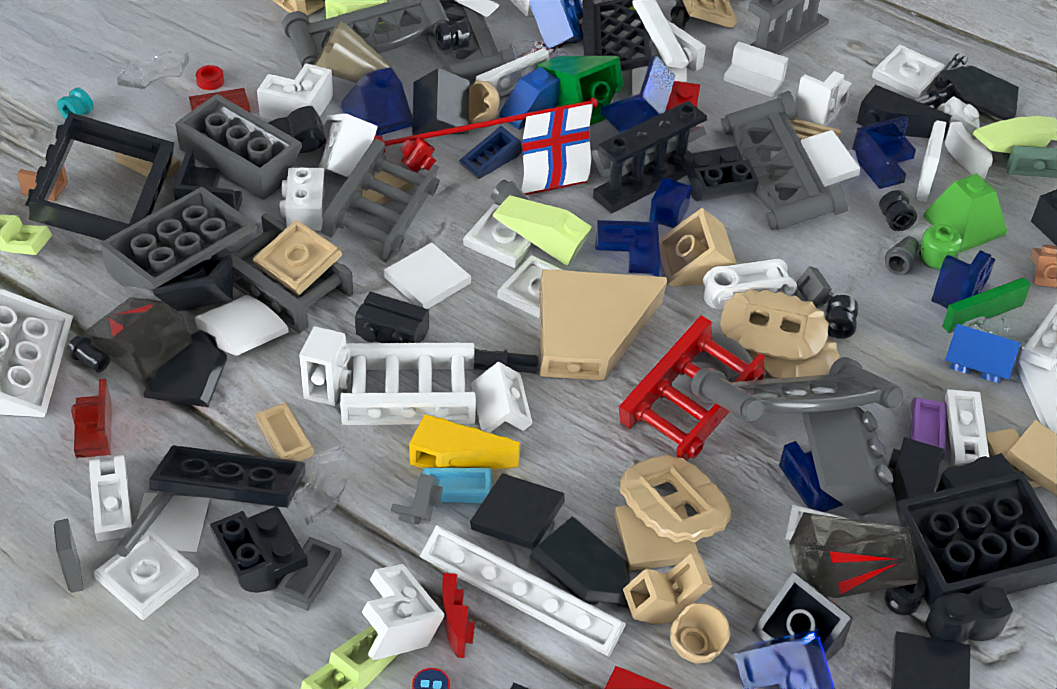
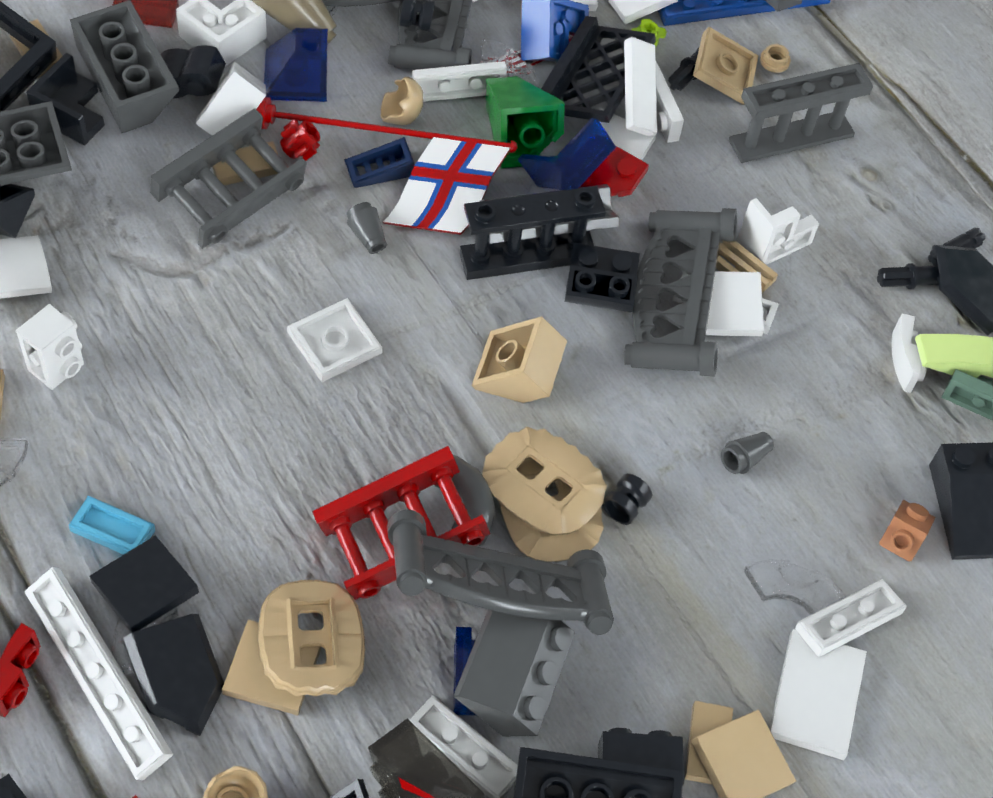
camera: 20 degrees right, 10 degrees up
(253, 281) = (62, 244): dark grey fence -> none
(297, 257) = (99, 215): tan tile -> none
(304, 197) = (156, 145): white brick -> none
(391, 320) = (156, 322): black brick -> none
(408, 408) = (130, 428): white fence -> none
(426, 497) = (59, 534): dark grey bracket -> none
(427, 276) = (228, 282): white tile -> none
(440, 102) = (359, 89): black slope -> none
(452, 445) = (122, 482): yellow slope -> none
(497, 240) = (336, 264): white tile -> none
(501, 399) = (213, 451): white panel -> none
(518, 362) = (242, 409): black axle -> none
(532, 93) = (462, 113): blue slope -> none
(546, 226) = (374, 272): yellowish green slope -> none
(592, 320) = (357, 399): tan slope -> none
(636, 238) = (459, 330): clear blue panel -> none
(662, 596) = (230, 741): tan brick -> none
(670, 203) = (529, 293): clear blue brick -> none
(725, 281) = (556, 415): white piece -> none
(756, 69) = (730, 167): white panel -> none
(813, 287) = (617, 454): dark grey tile -> none
(881, 148) = (807, 312): clear blue panel -> none
(884, 105) = (853, 279): black slope -> none
(898, 211) = (775, 398): black wheel -> none
(908, 71) = (907, 228): white tile -> none
(914, 468) = (585, 714): black slope -> none
(928, 422) = (640, 667): medium lavender tile -> none
(930, 160) = (846, 352): white tile -> none
(938, 243) = (791, 459): bright green head -> none
(961, 113) = (924, 304): white bracket -> none
(962, 280) = (790, 515): clear blue panel -> none
(965, 426) = (679, 685): white plate -> none
(970, 209) = (853, 431): bright green slope -> none
(982, 352) = (750, 605): blue brick -> none
(987, 304) = (800, 548): green tile -> none

